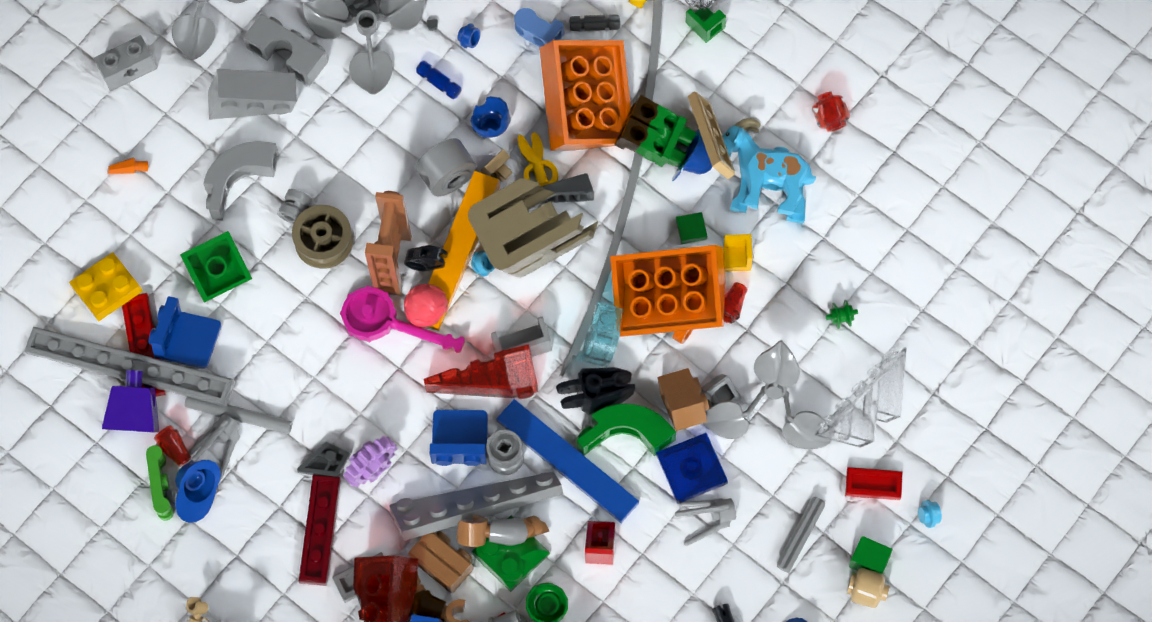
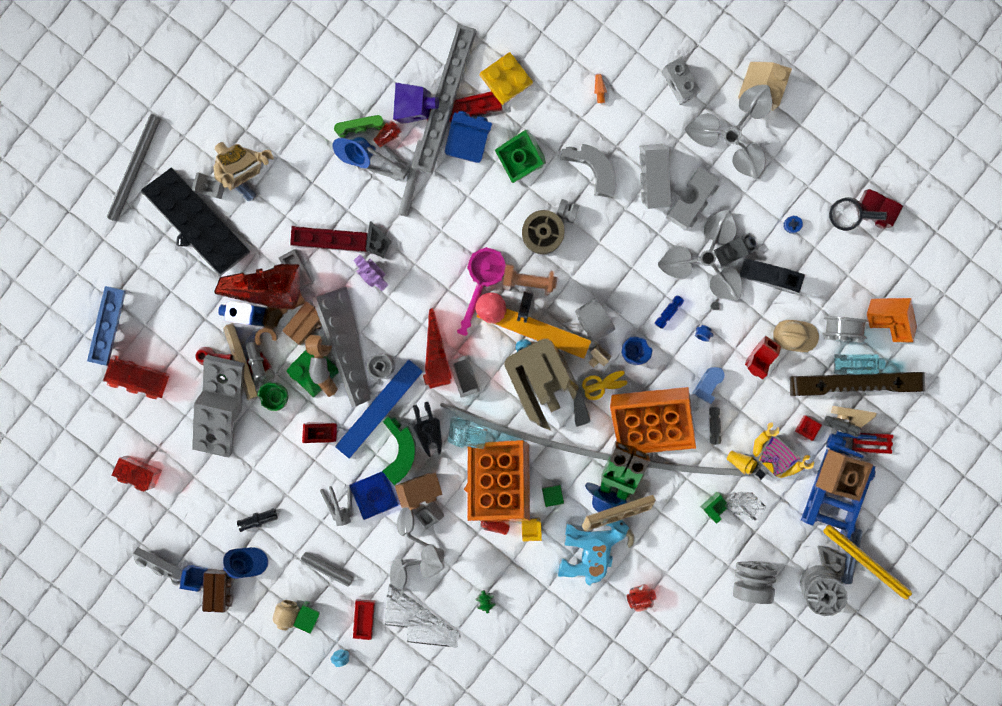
camera: 85 degrees right, 20 degrees up
(459, 437) = (393, 333): blue bracket -> none

